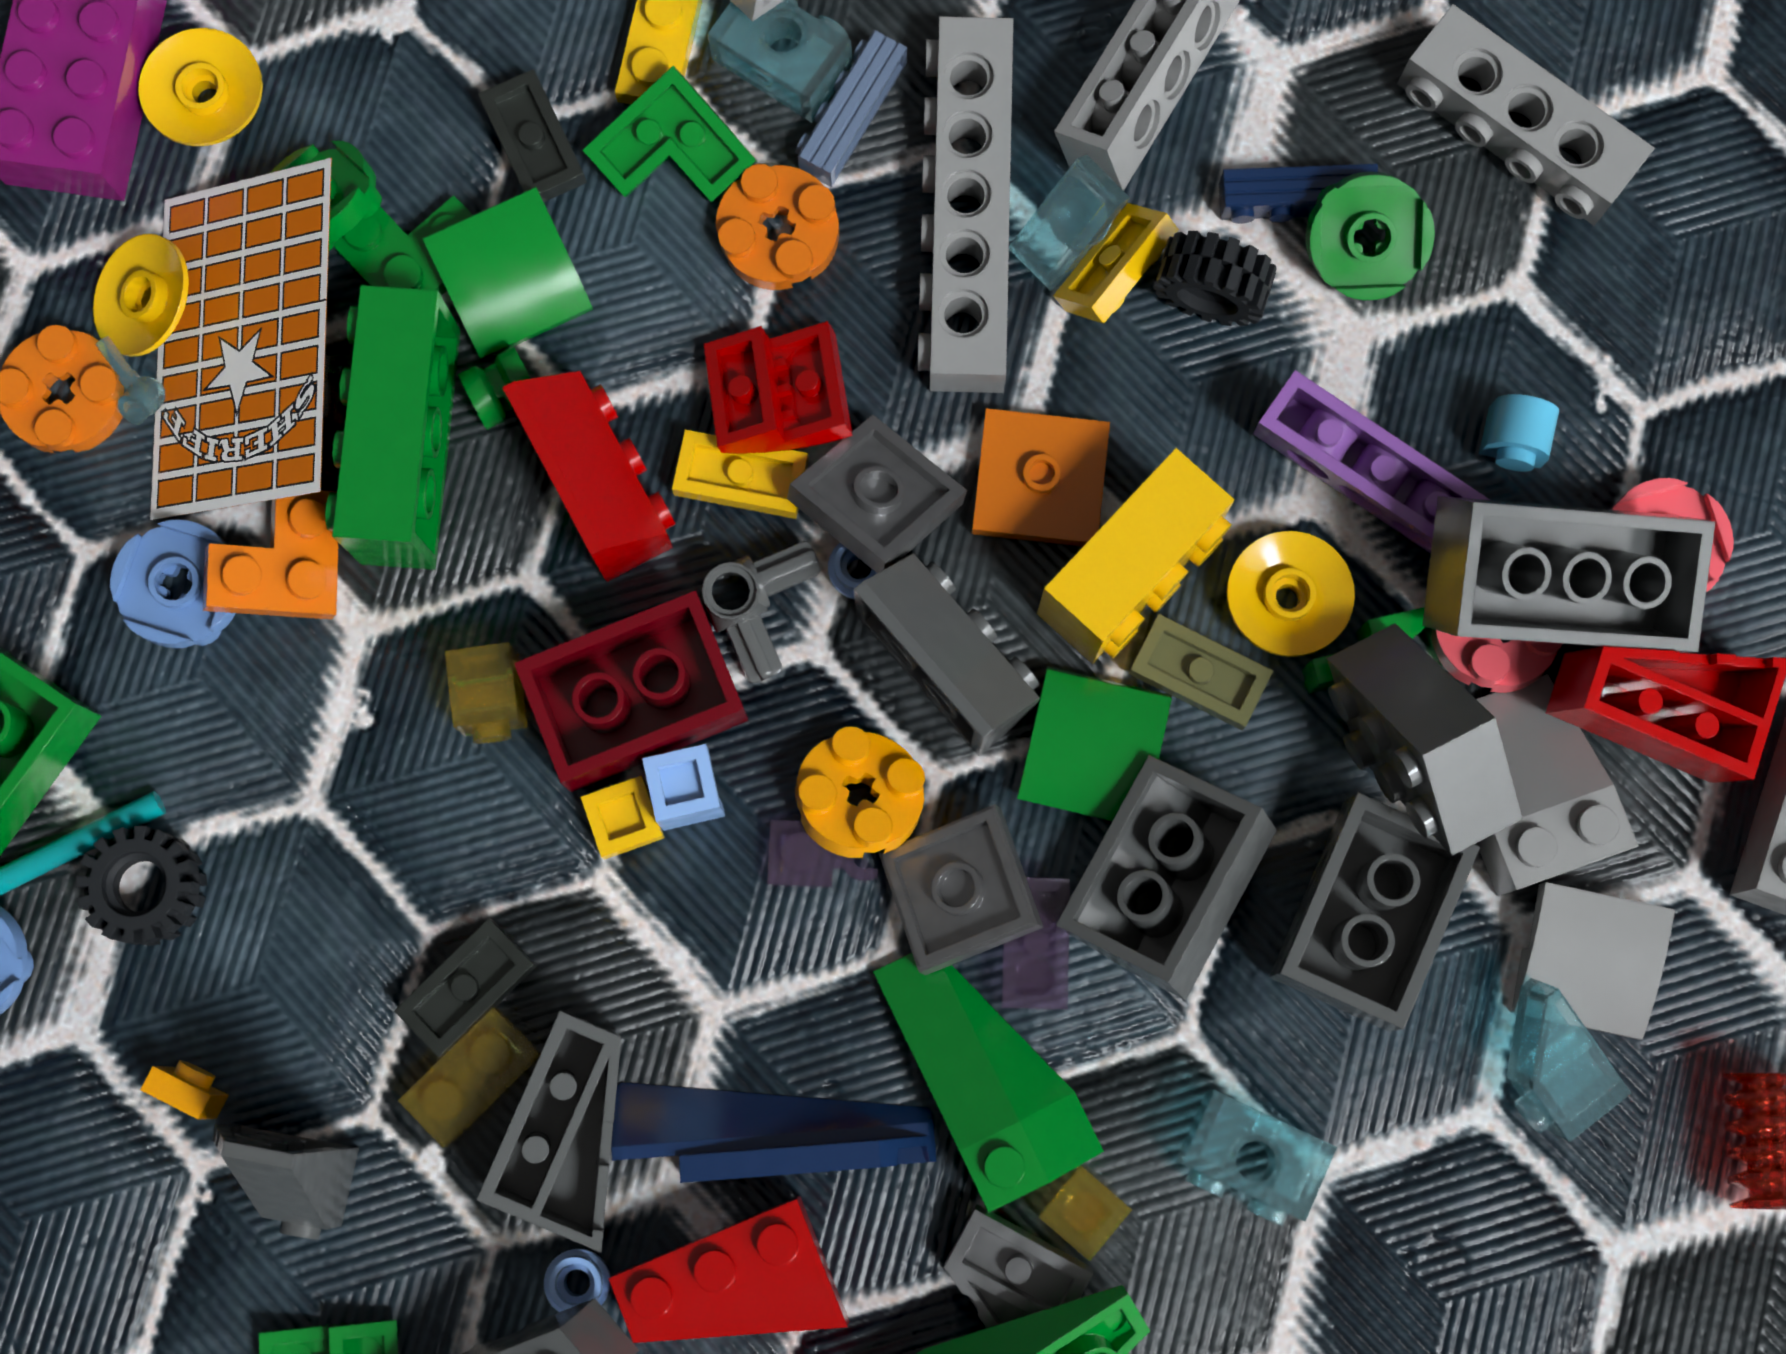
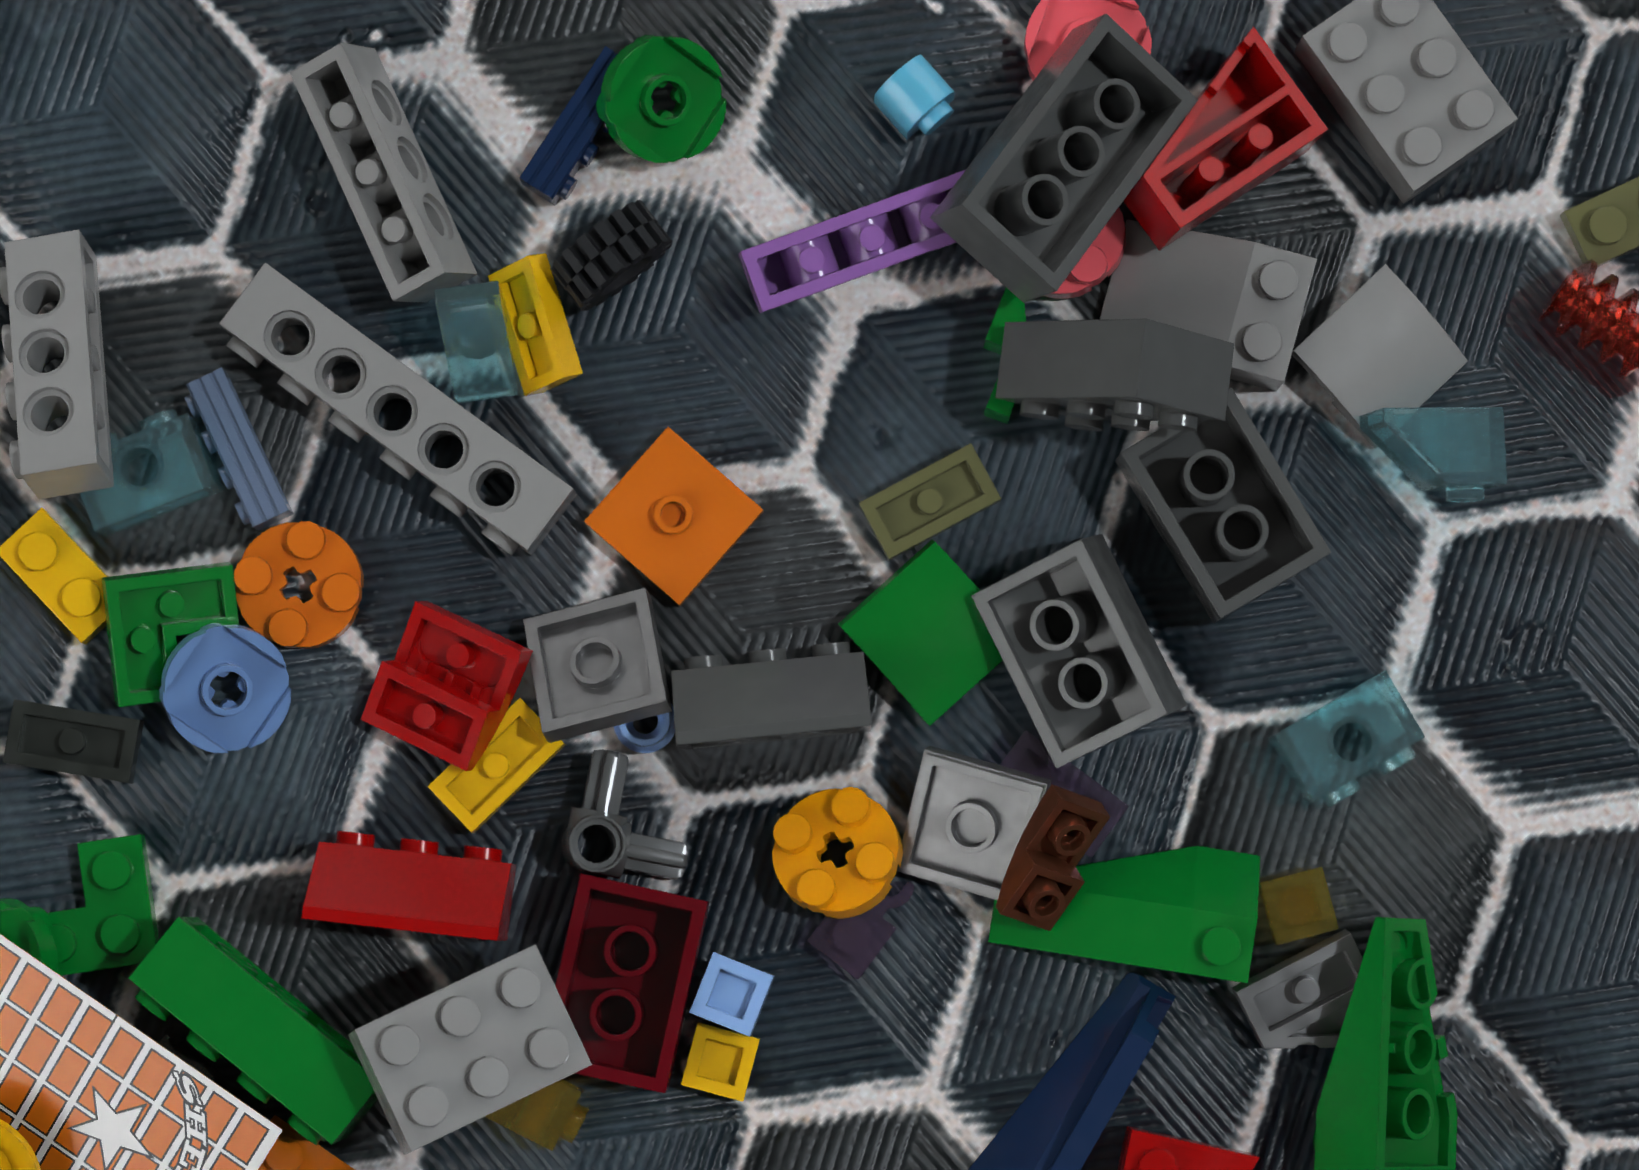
camera: 55 degrees left, 5 degrees up
(481, 589) = (469, 1049): none -> light grey brick
(486, 385) = (278, 919): green wheel -> none
(508, 274) = (183, 844): green slope -> none
(630, 247) = (232, 724): none -> medium blue plate
(966, 970) = (1043, 866): none -> copper slope
(1137, 558) = (805, 490): yellow brick -> none
(1309, 570) = (924, 350): yellow dish -> none

